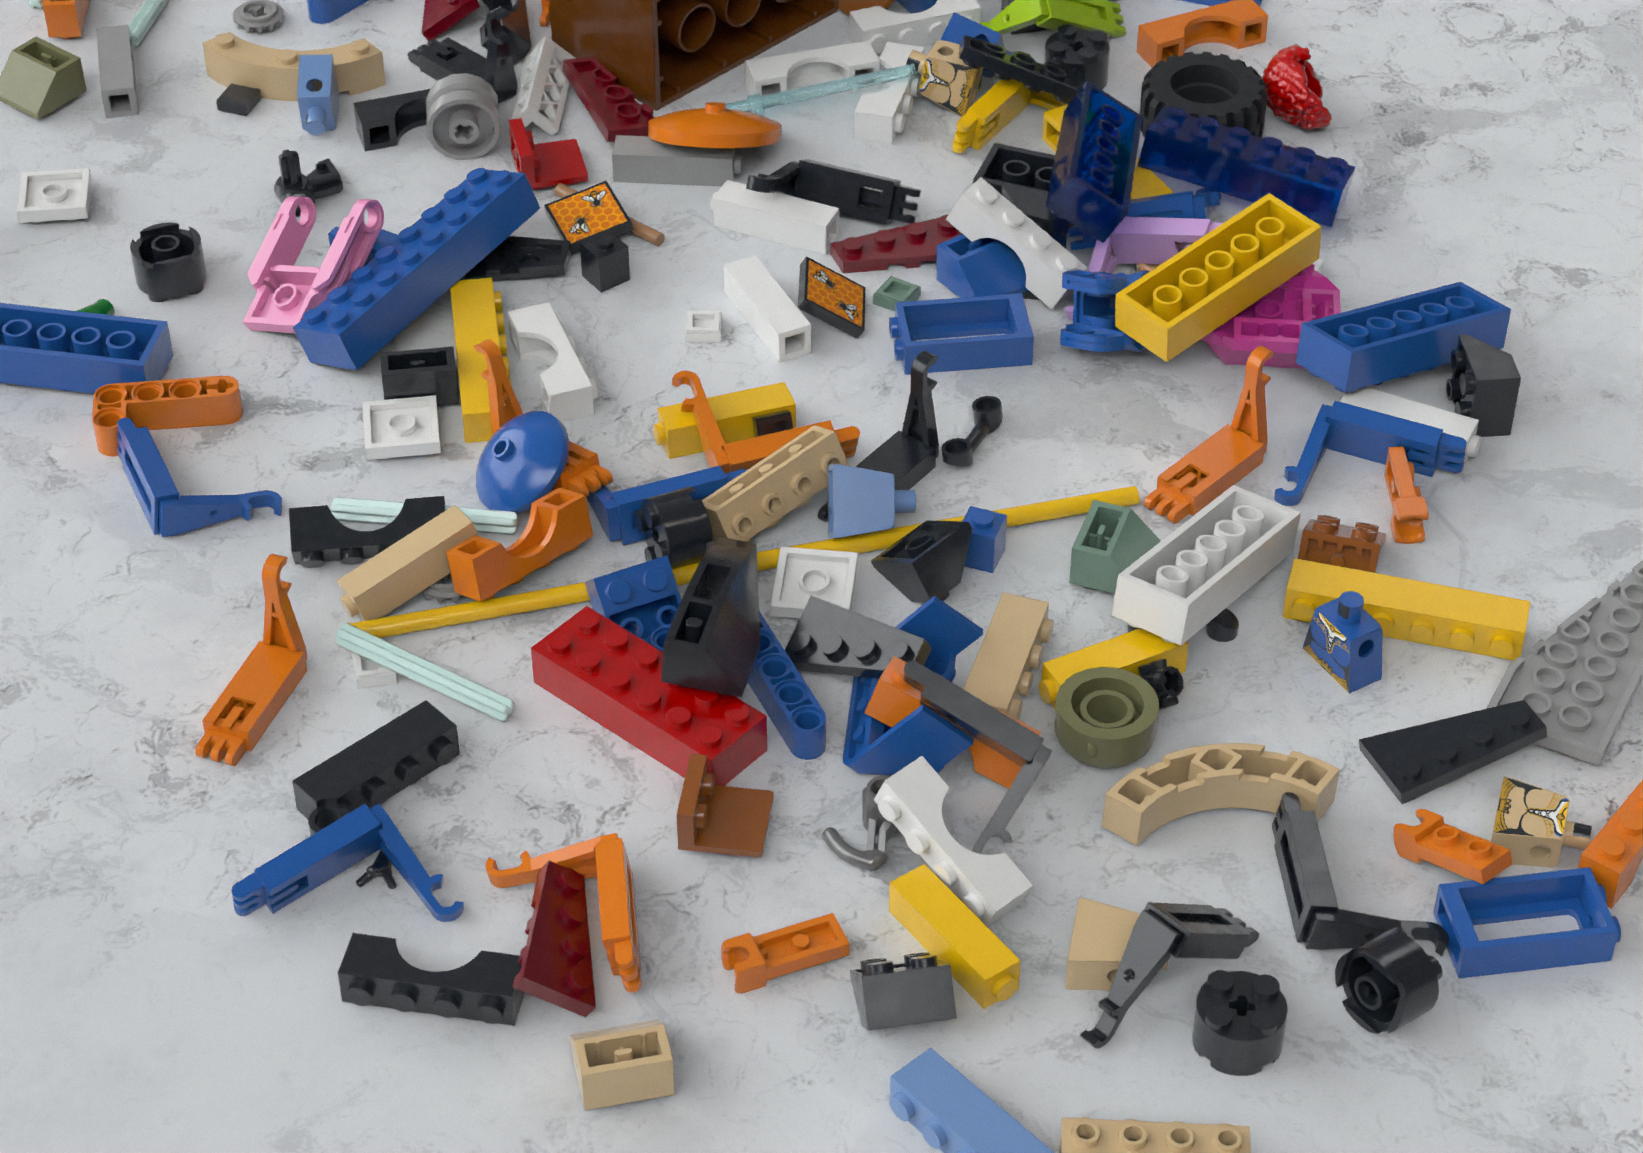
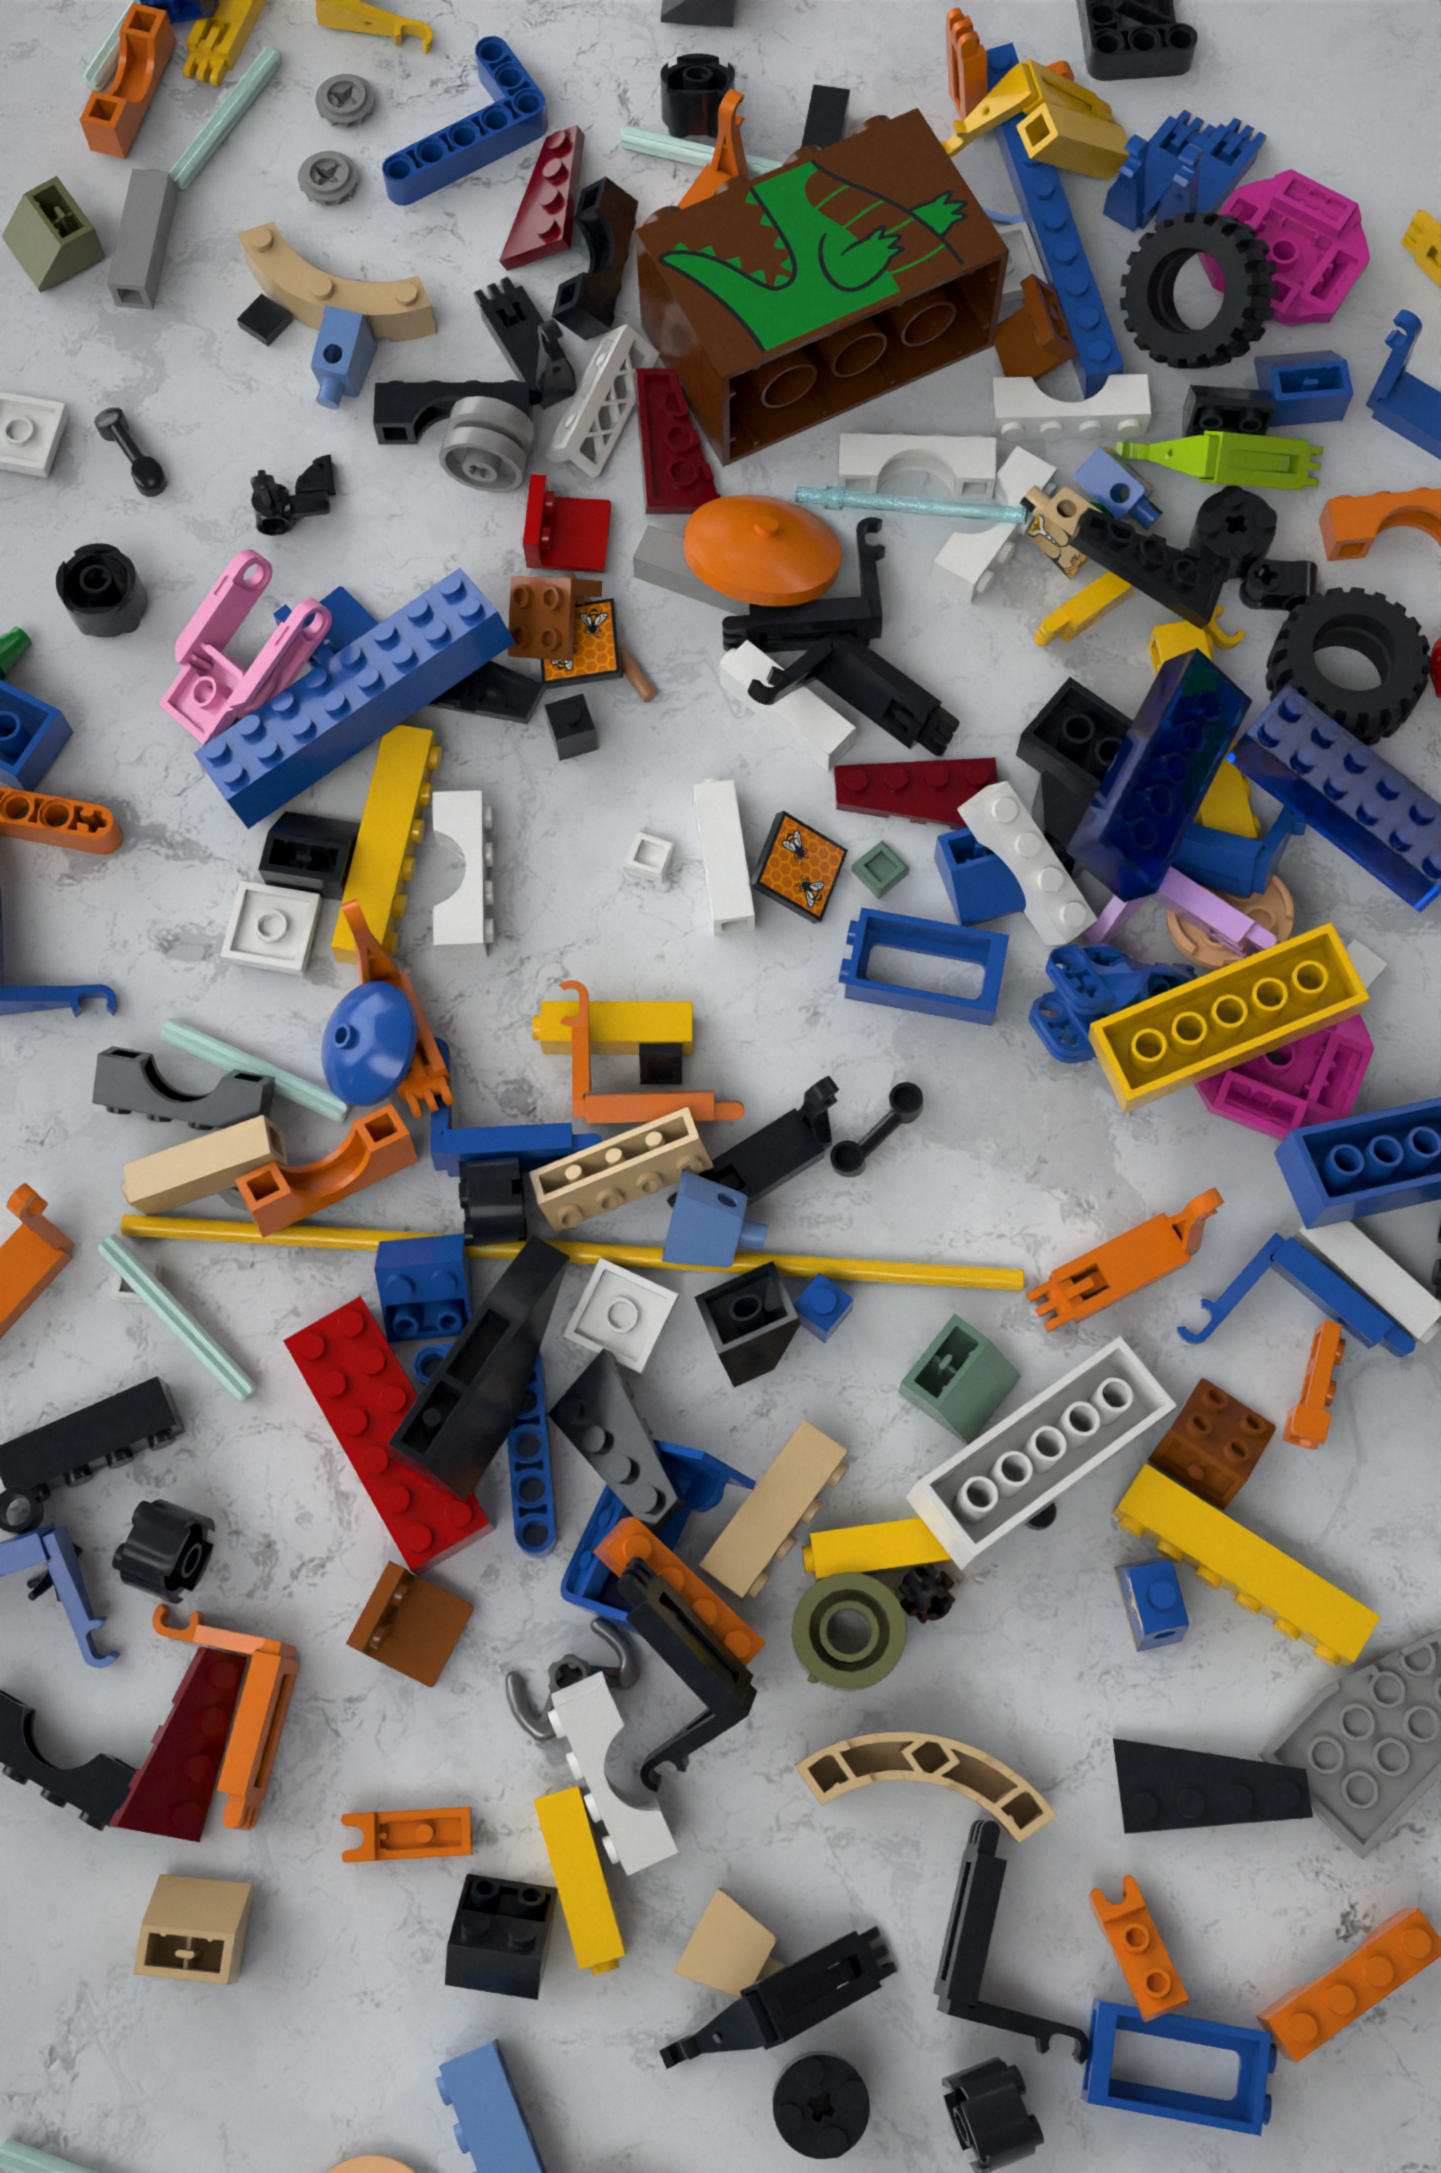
camera: 20 degrees right, 30 degrees up
(176, 196) = (144, 470): none -> black bar
(481, 808) = (164, 1550): none -> black brick
(560, 197) = (545, 614): none -> dark orange bracket
(769, 158) = (807, 623): none -> black hinge
(1124, 80) = (1282, 582): none -> black piece
(1535, 824) = (1244, 1932): tan torso -> none

